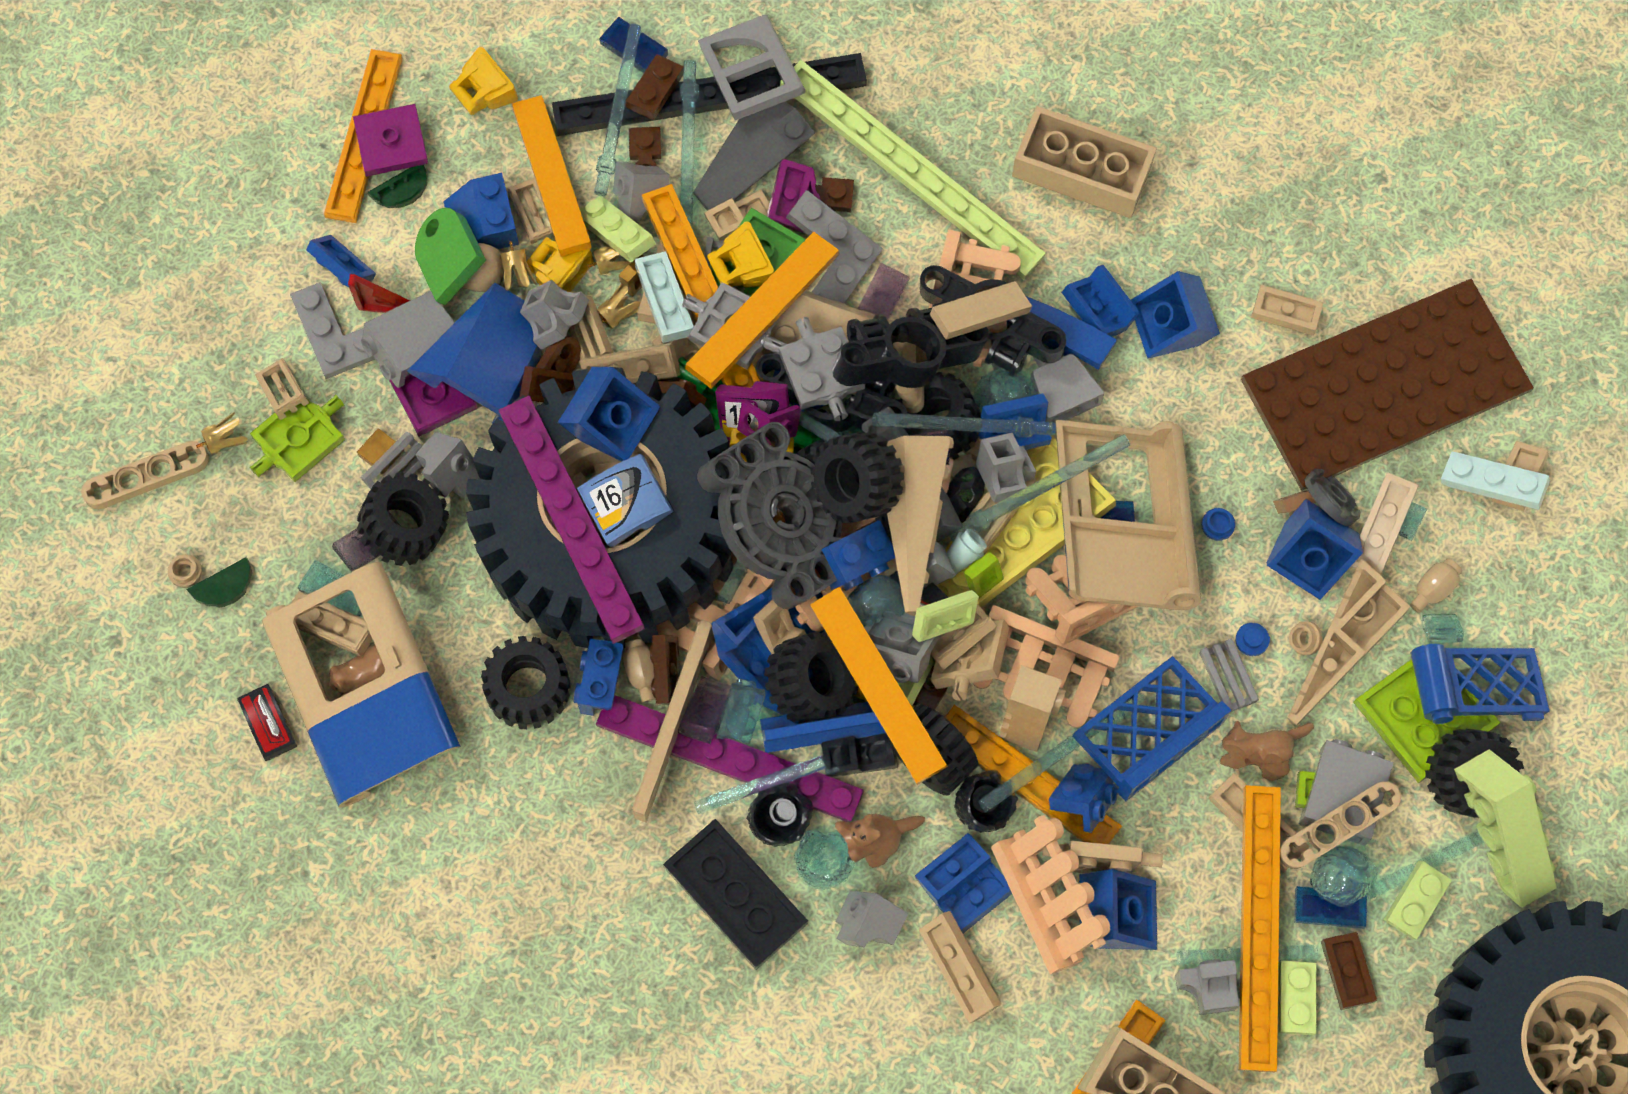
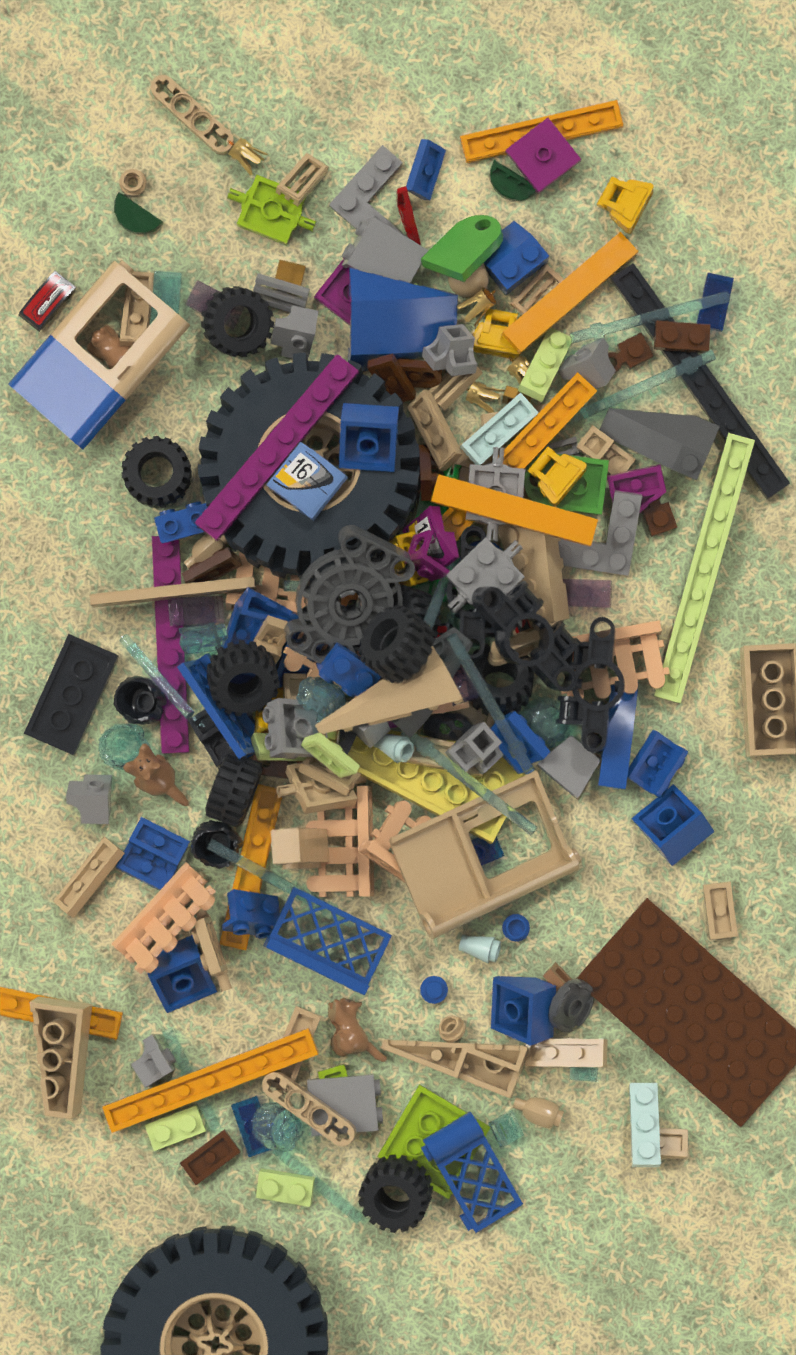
camera: 65 degrees right, 15 degrees up
(760, 34) = (770, 395): light grey window -> none
(878, 685) = (251, 729): light orange tile -> none
(980, 310) = (584, 676): tan tile -> none
(984, 574) = (383, 768): lime plate -> none
(1218, 649) = (381, 1000): light grey tile -> none
(1226, 568) = (481, 947): none -> light aqua cone
(1509, 826) = (360, 1232): yellowish green wedge -> none

